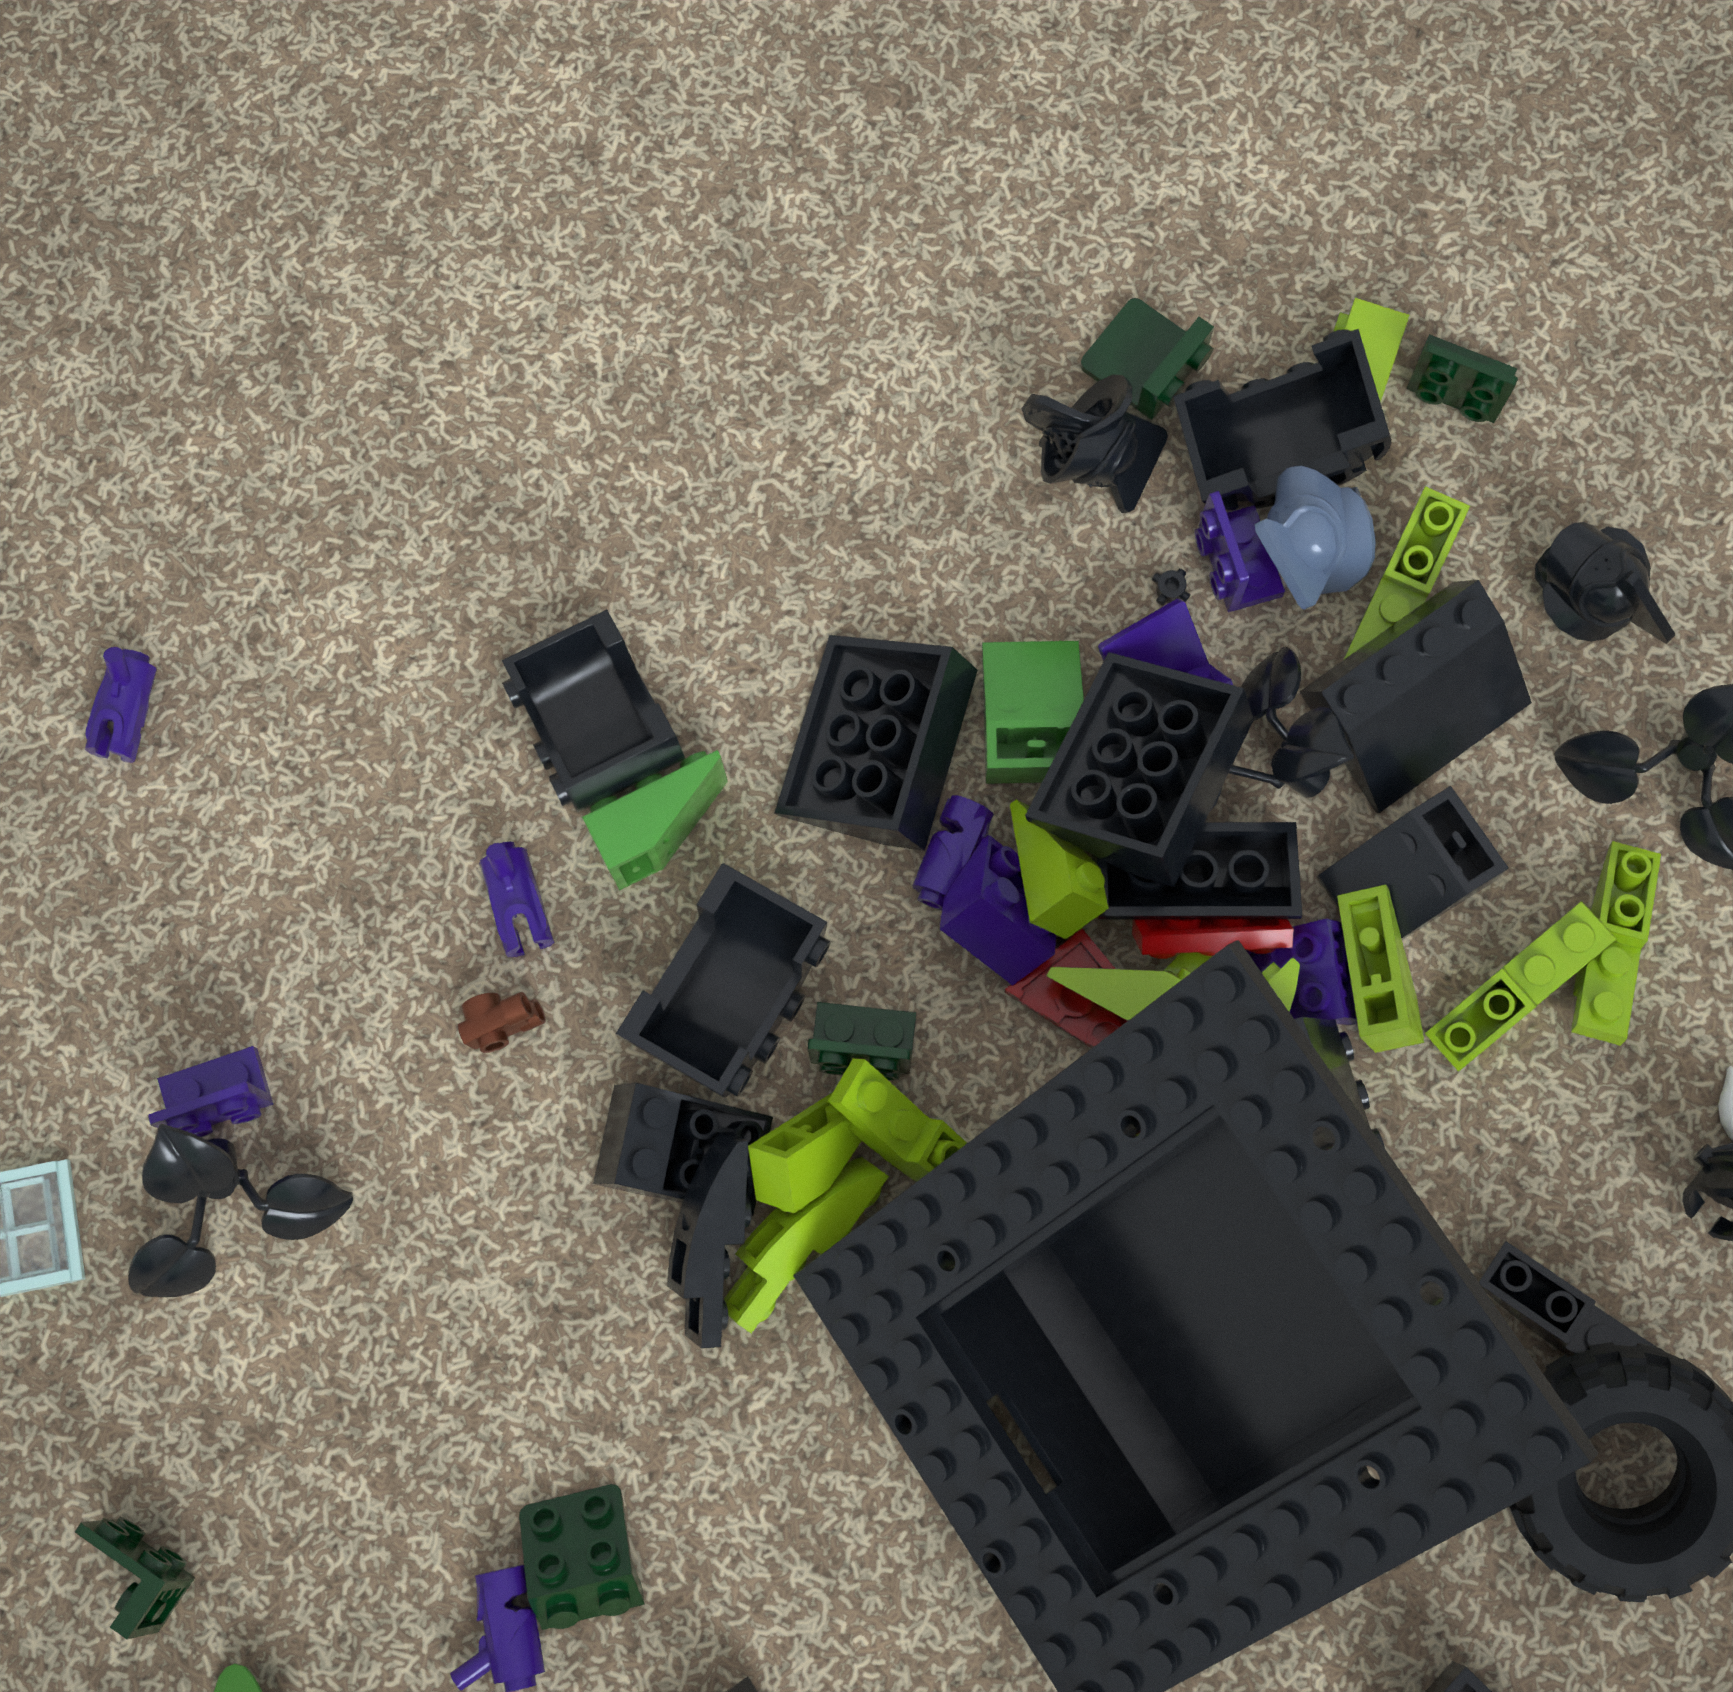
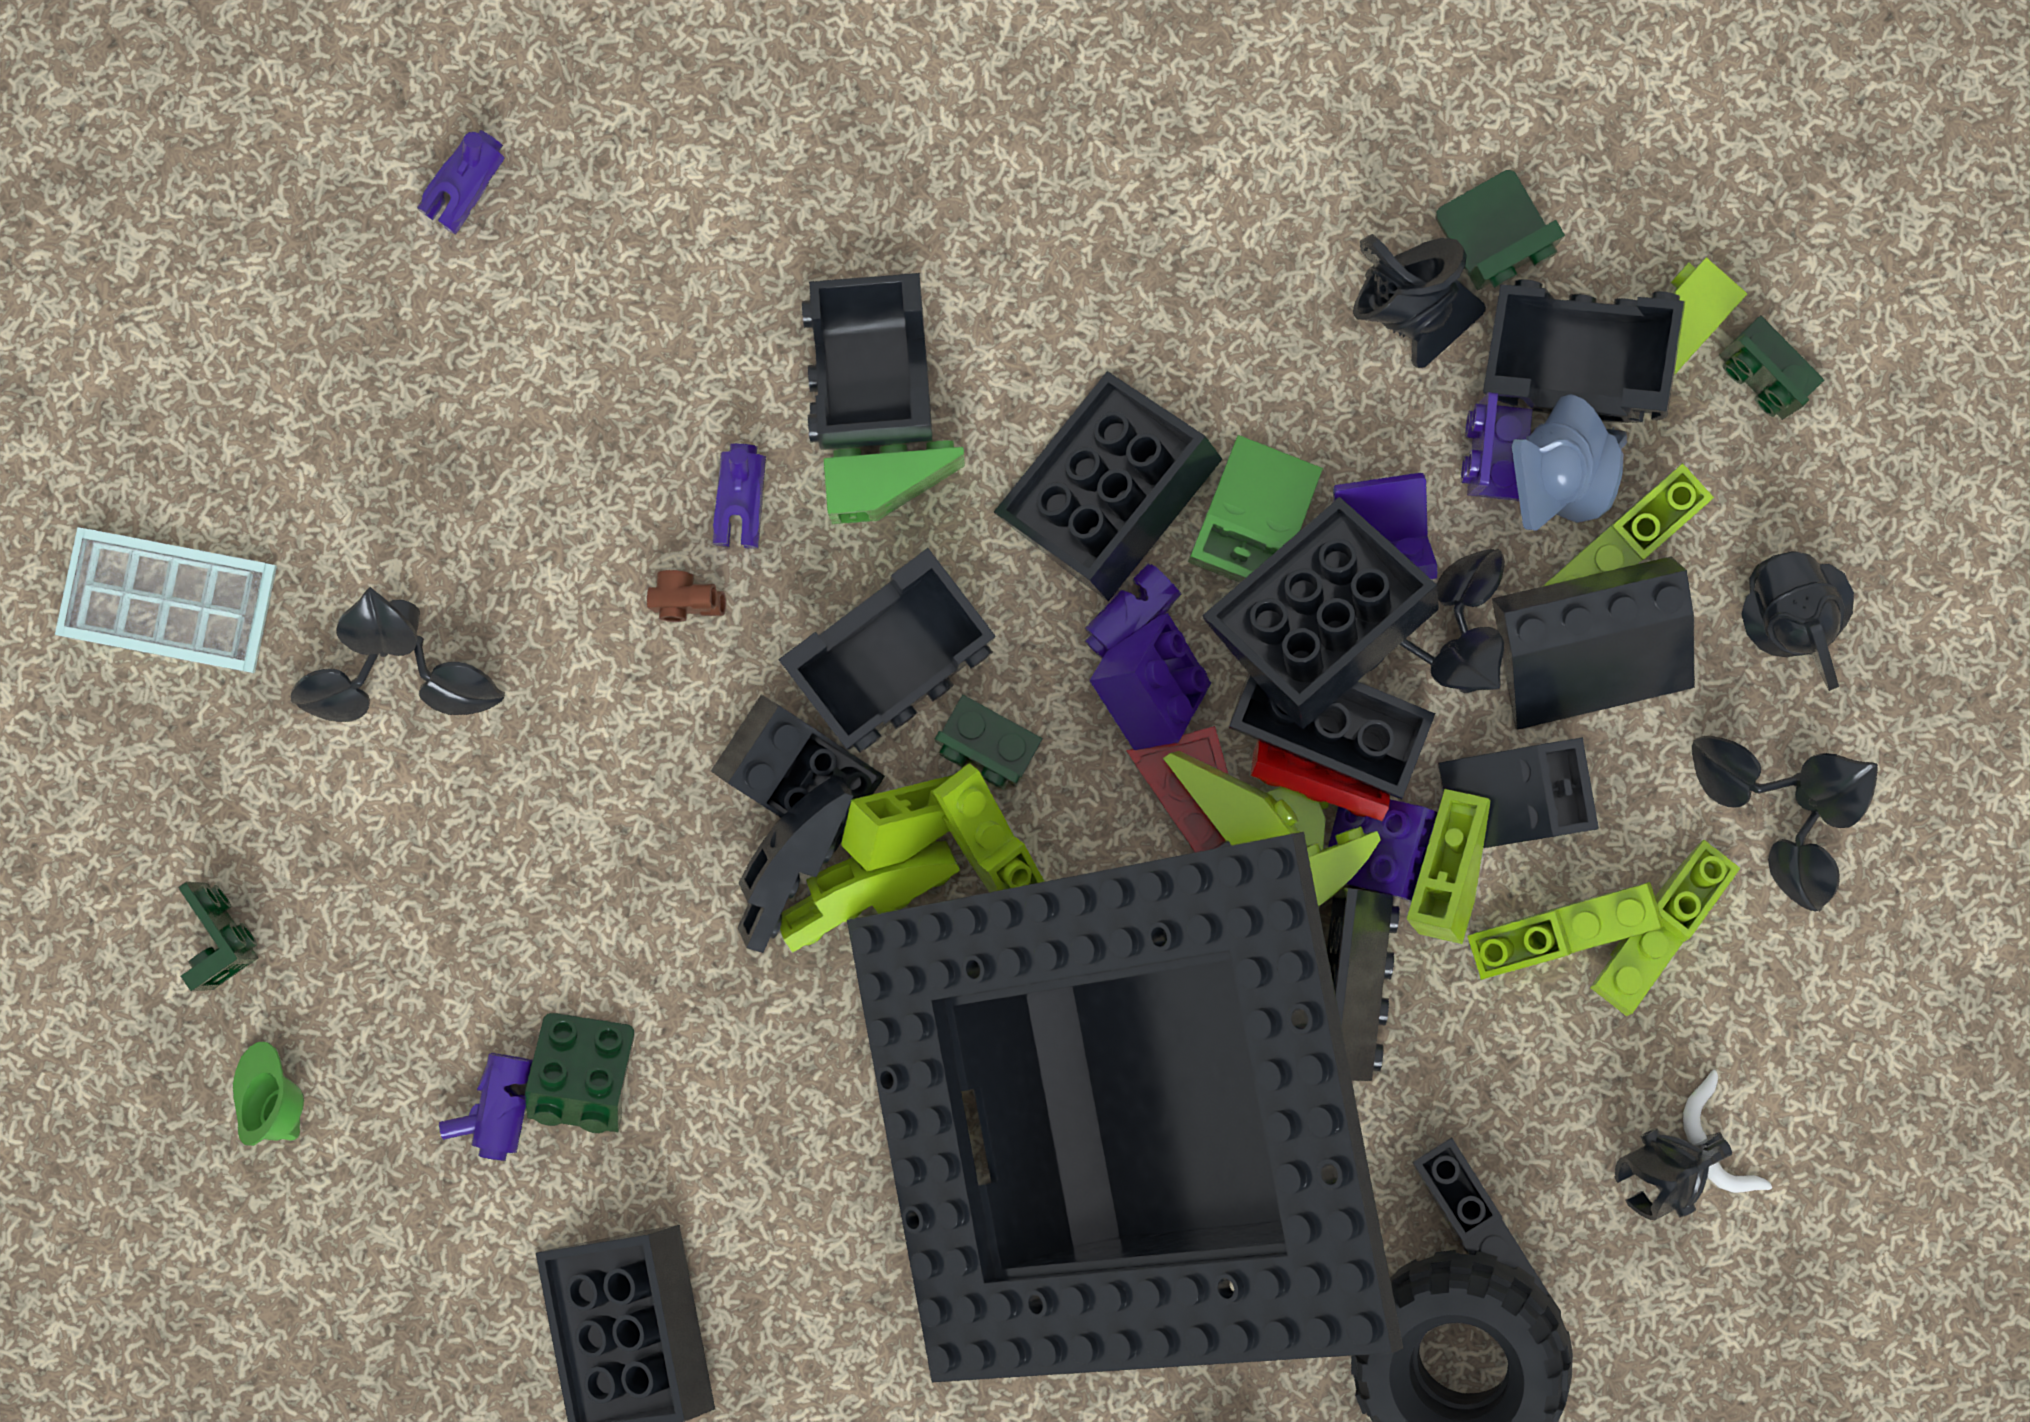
camera: 15 degrees right, 10 degrees up
(213, 1093) = (418, 558): dark purple bracket -> none
(1058, 878) = (1209, 680): lime slope -> none
(1171, 586) = (1426, 452): black piece -> none

